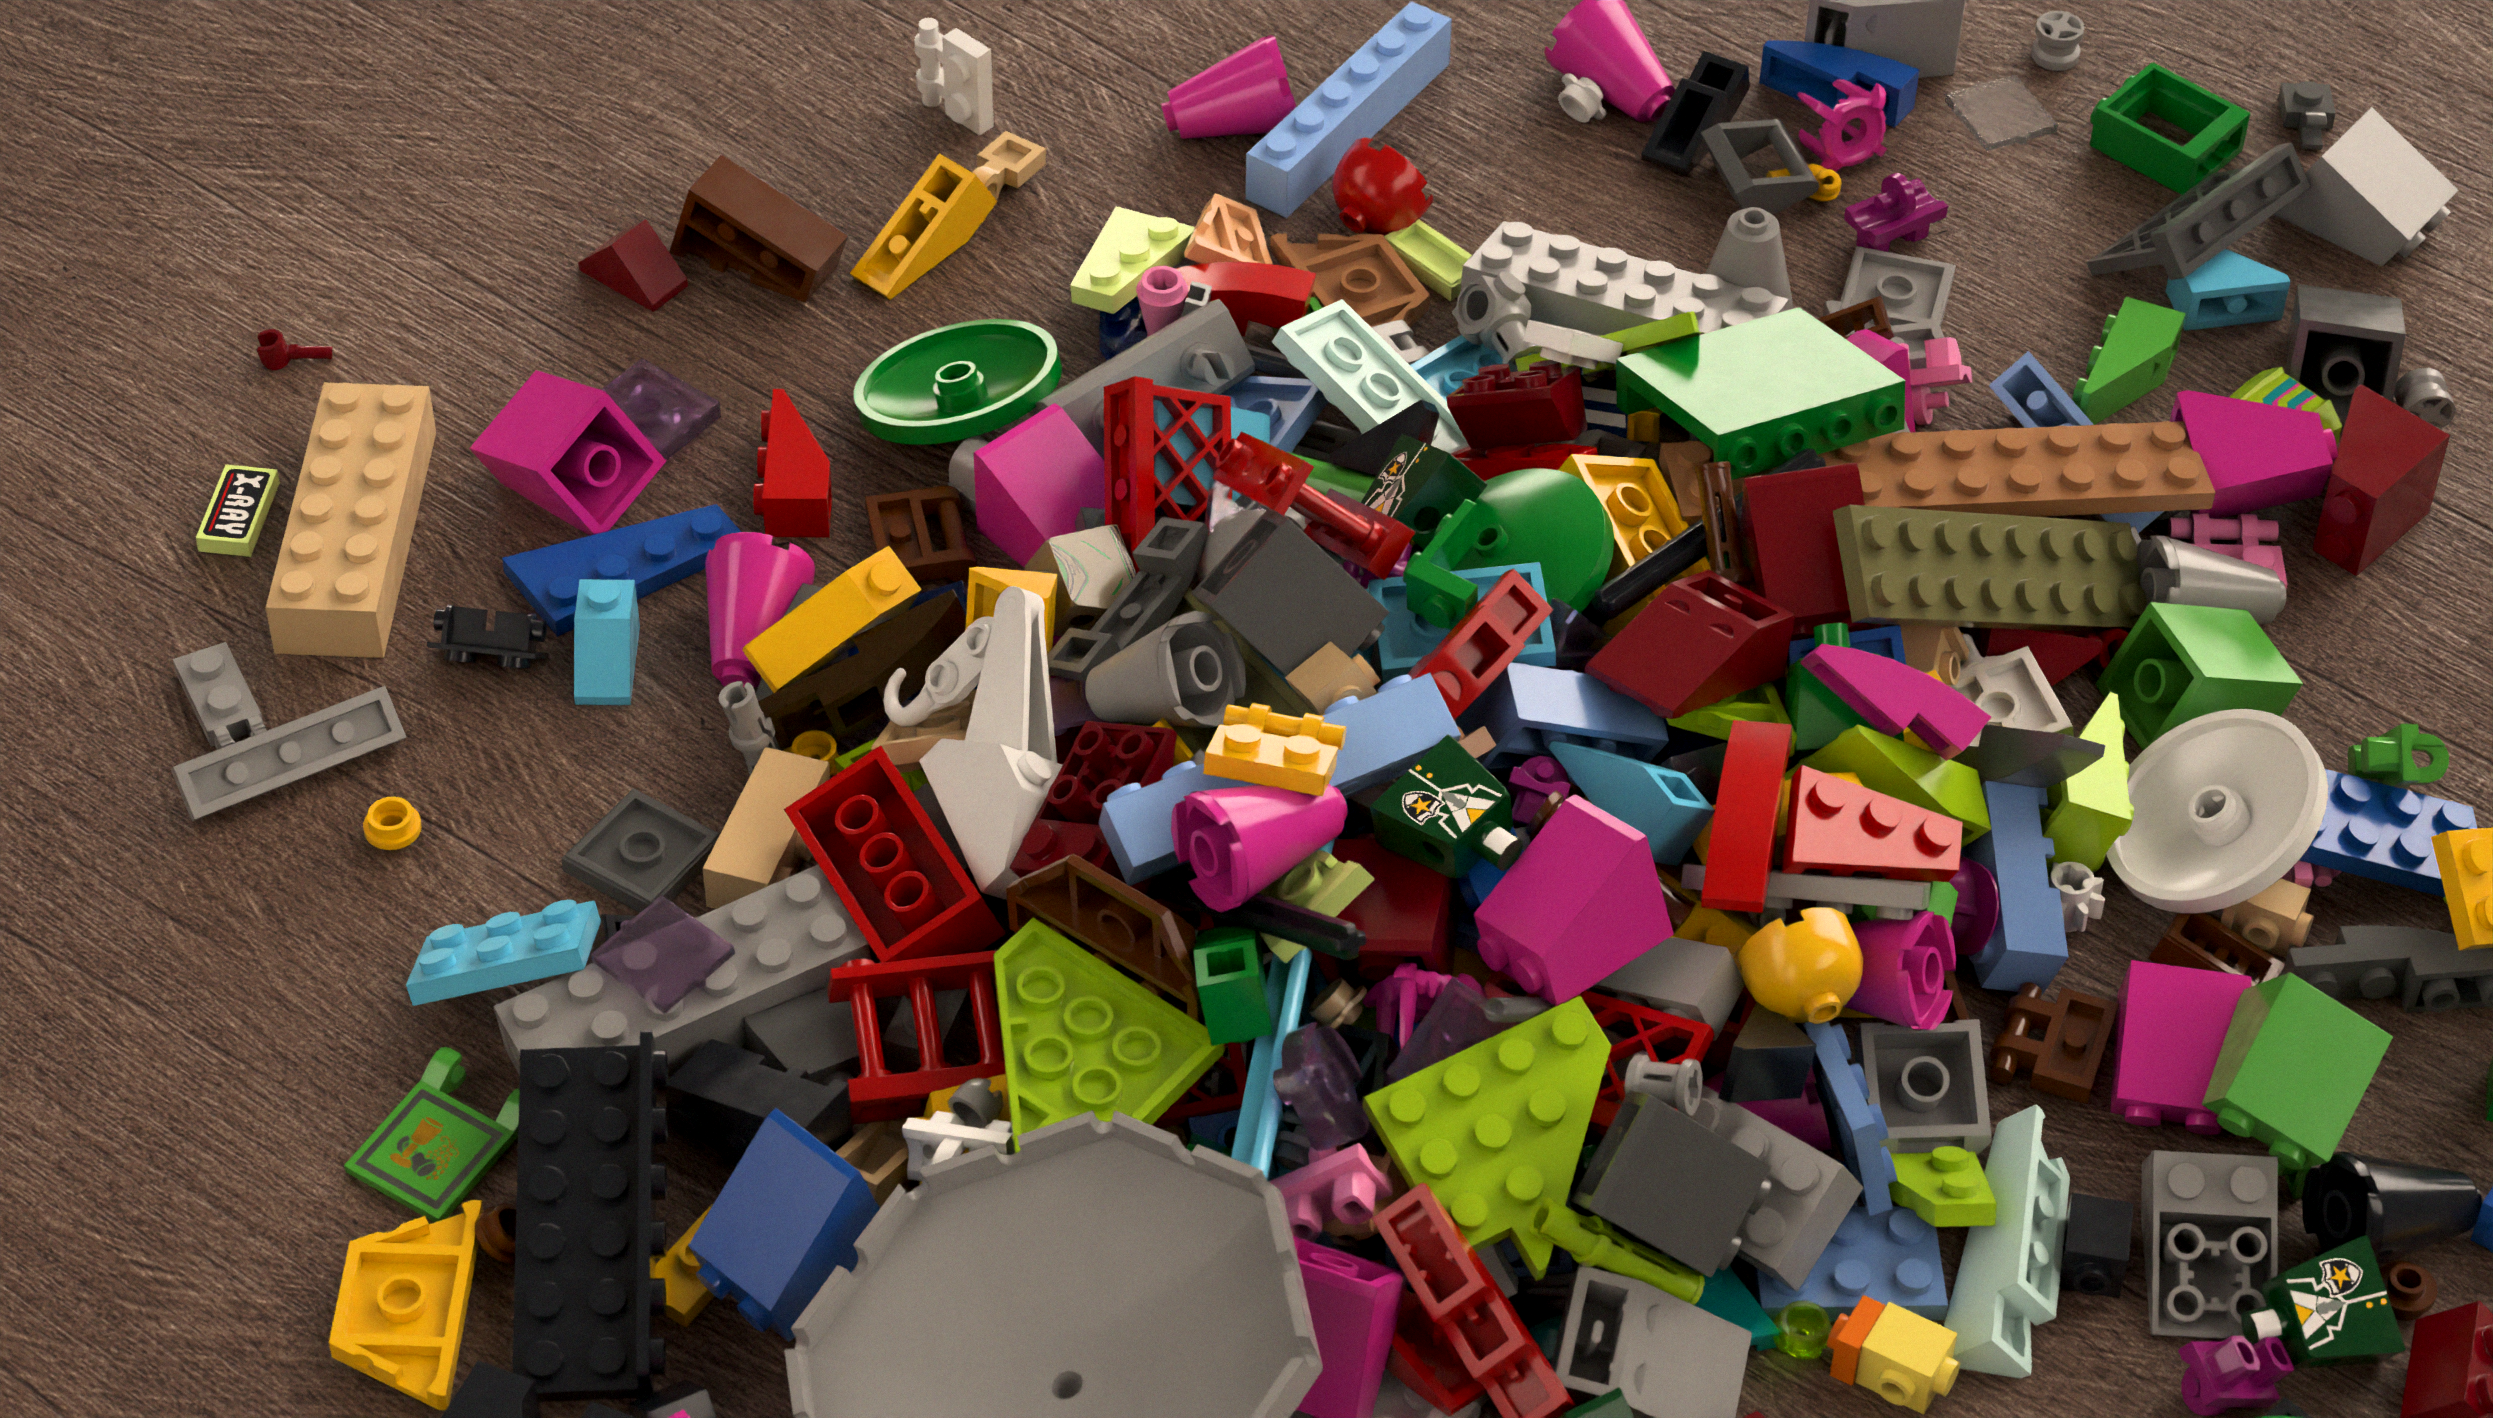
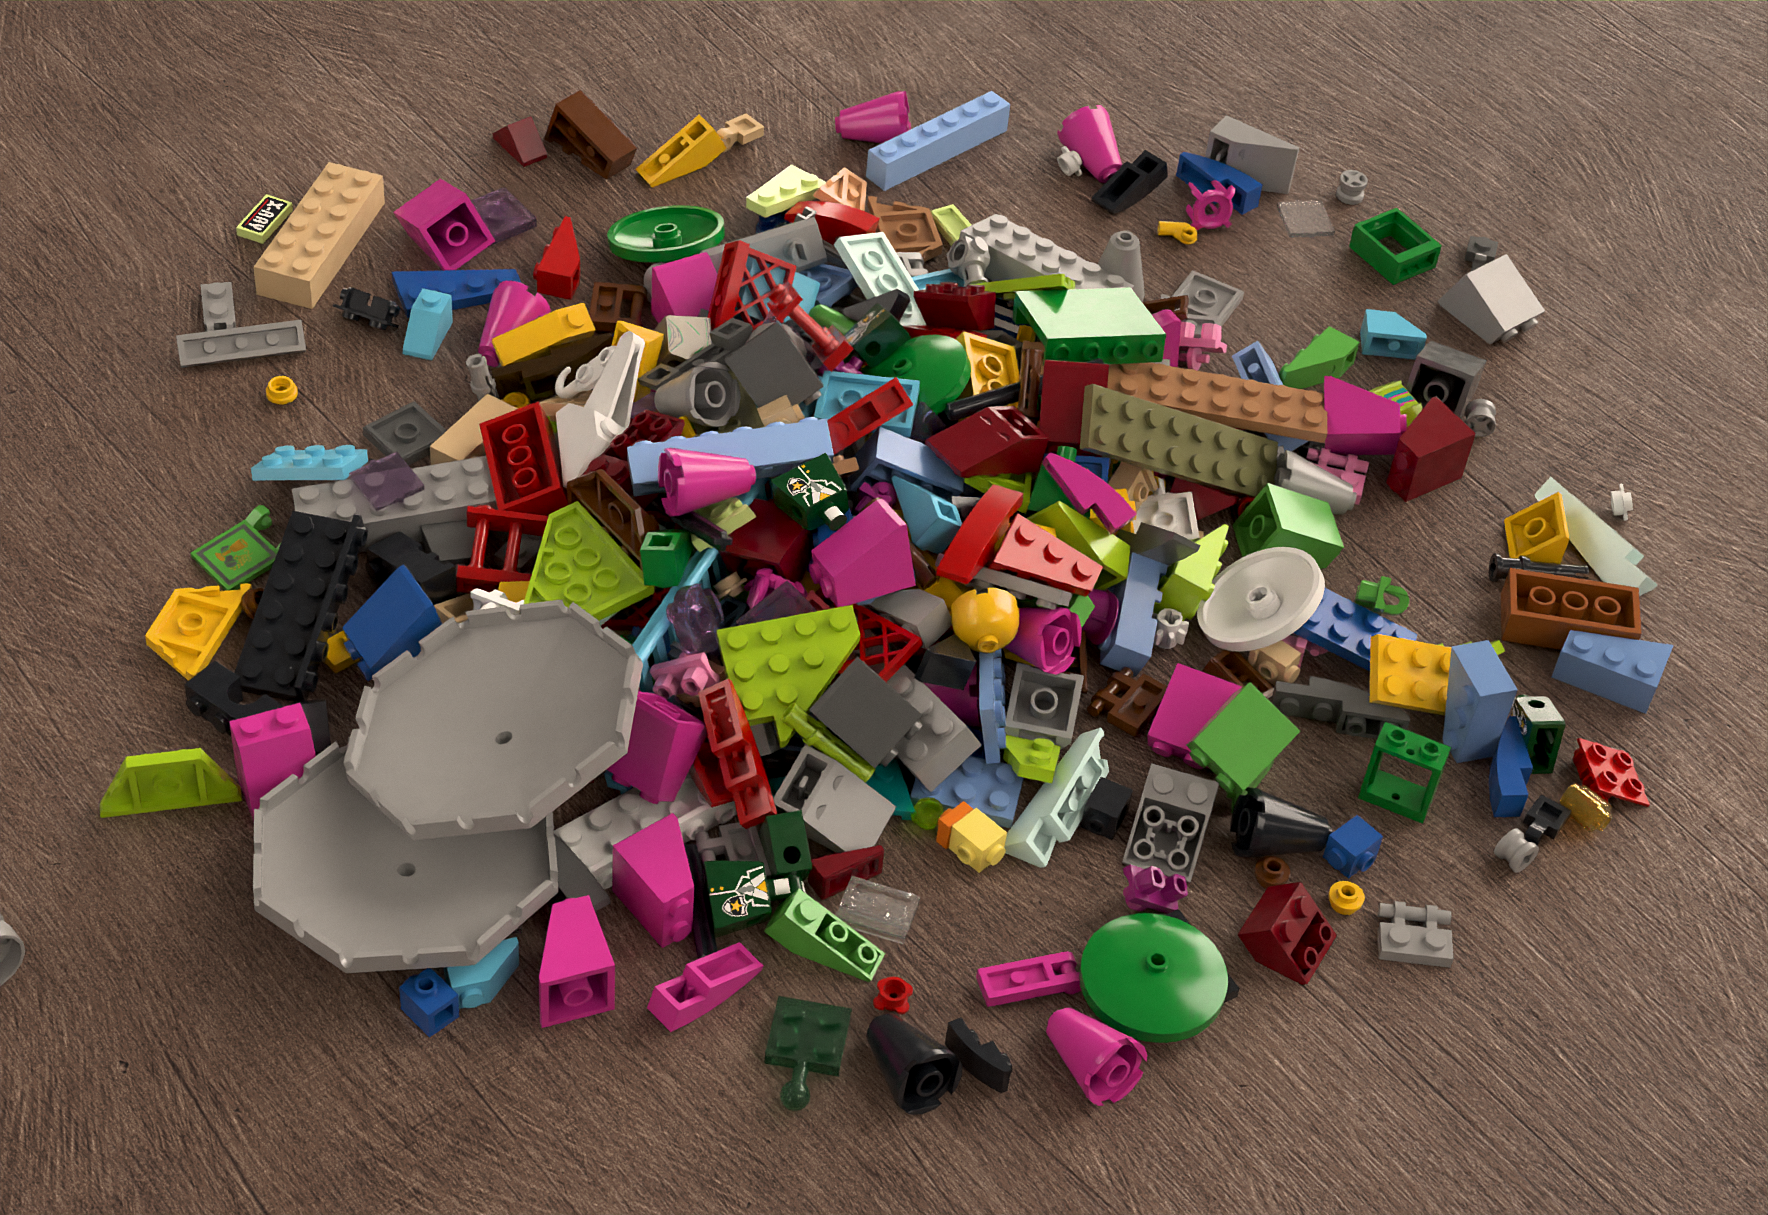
camera: 10 degrees right, 0 degrees up
(277, 354) = (316, 145): dark red hand -> none
(962, 81) = (727, 78): white plate -> none
(976, 1103) = (516, 589): light grey hinge -> none
(1161, 297) = (788, 208): bright pink cone -> none
(1275, 749) = (724, 437): yellow plate -> none
(1378, 189) = (934, 184): red cylinder -> none
(1428, 577) = (855, 371): green bracket -> none
(1521, 1011) = (812, 606): flat silver piece -> none
(1571, 345) = (987, 276): white plate -> none
(1671, 1083) = (883, 661): light grey bush -> none
(1736, 140) = (1152, 233): dark grey tile -> none
(1898, 211) = (1220, 255): magenta hips -> none
(2208, 217) = (1396, 294): dark grey fence -> none
(2329, 1310) = (1219, 870): dark green torso -> none

